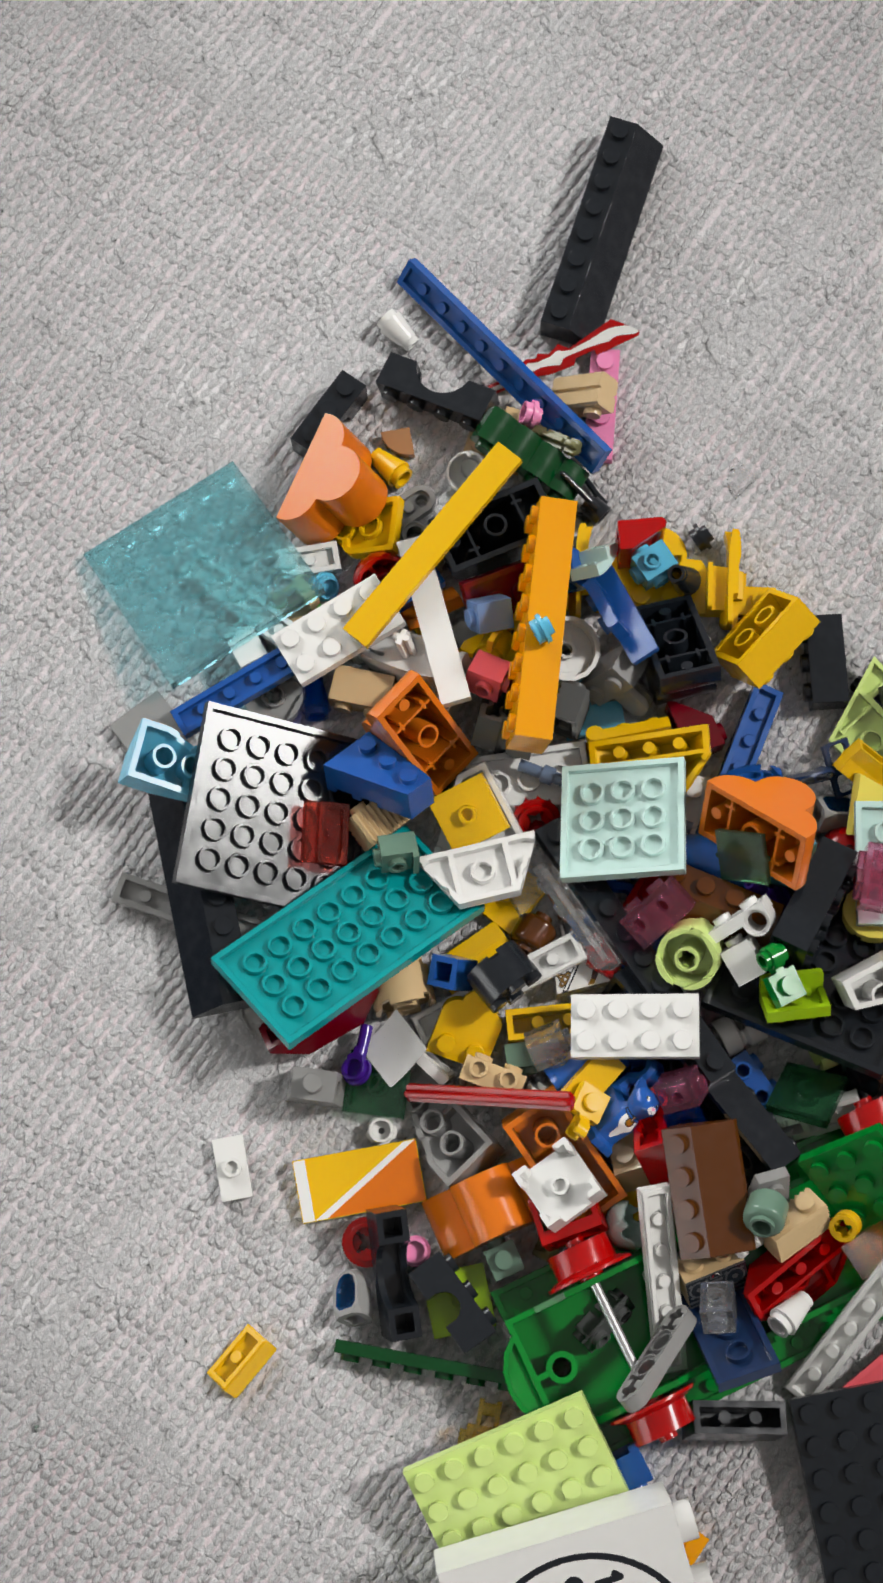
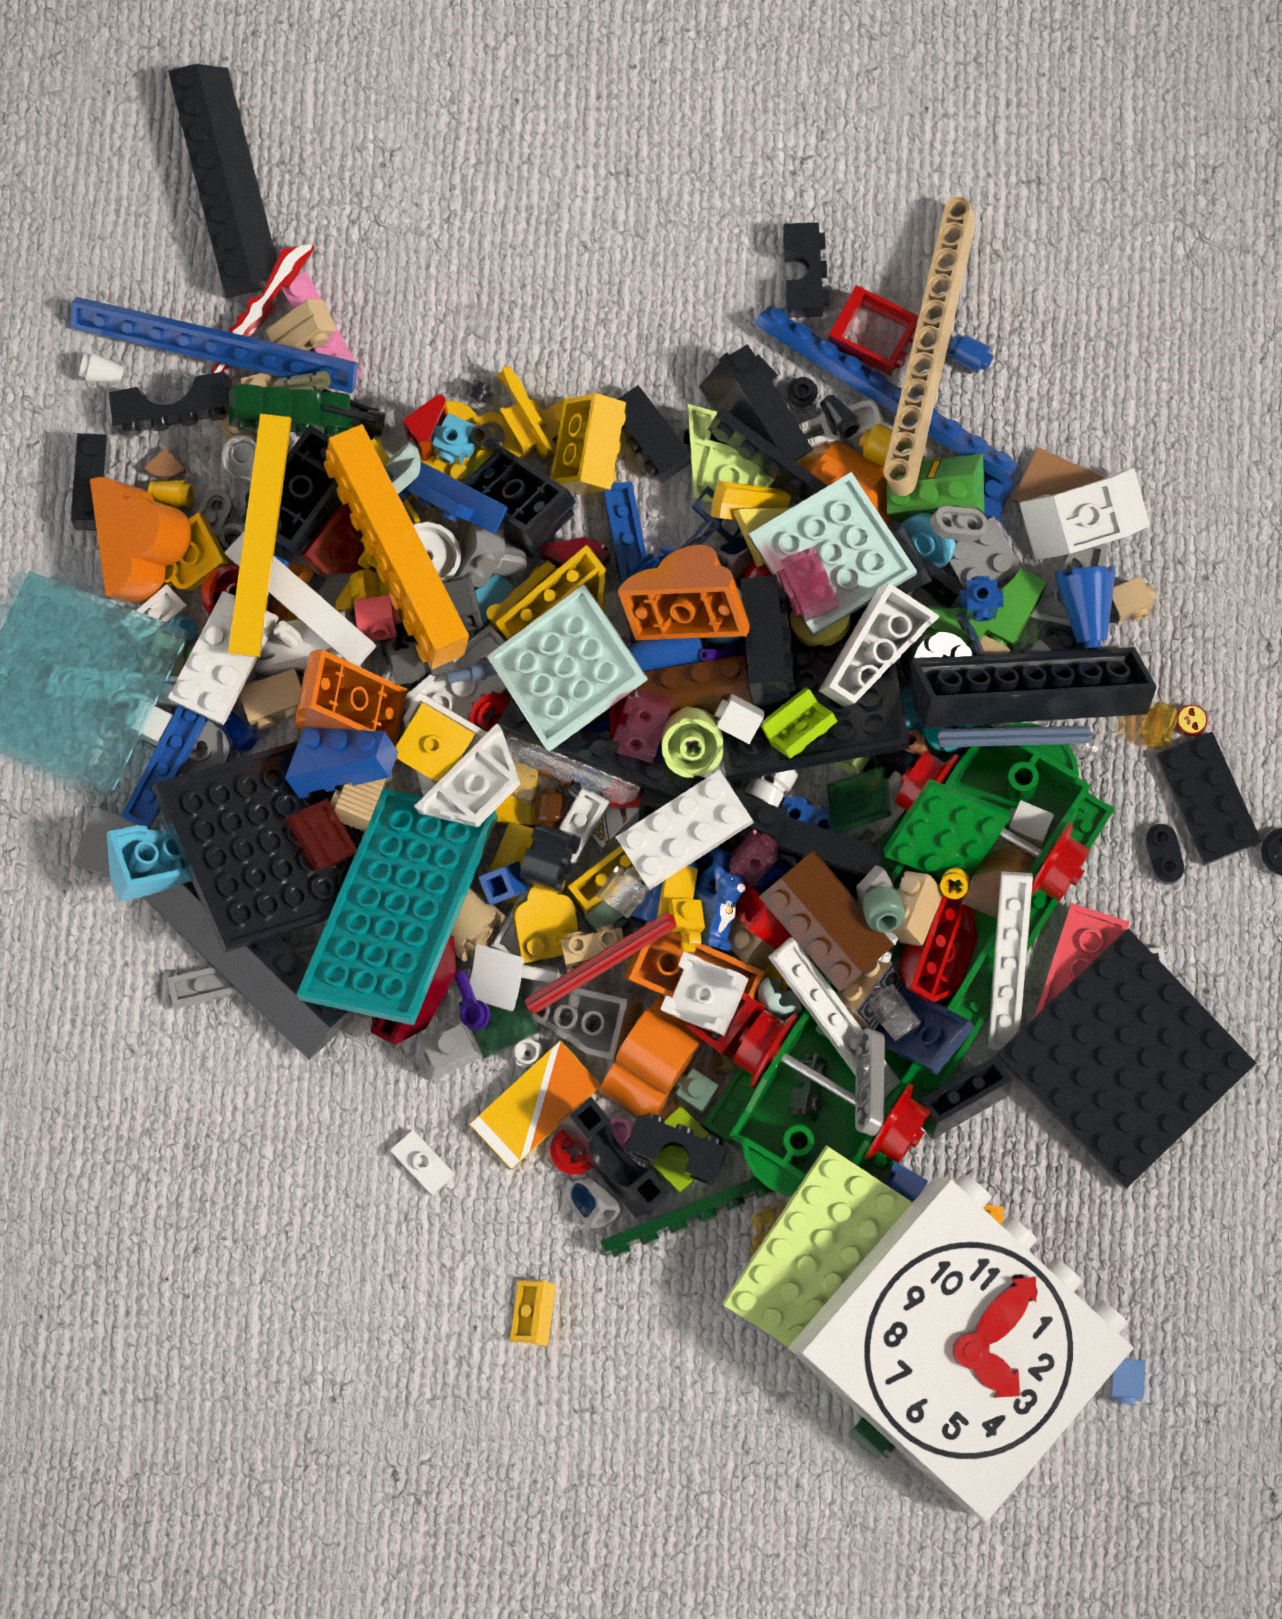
camera: 35 degrees left, 0 degrees up
(397, 853) = (394, 813): sand green brick -> none
(489, 613) = (344, 564): medium blue brick -> none
(530, 414) = (267, 373): bright pink plate -> none
(542, 628) = (402, 548): medium azure plate -> none
(728, 924) = (708, 697): white plate -> none
(743, 856) = (685, 635): piece -> none
(783, 983) = (783, 718): green plate -> none
(788, 1315) = (954, 983): white cone -> none

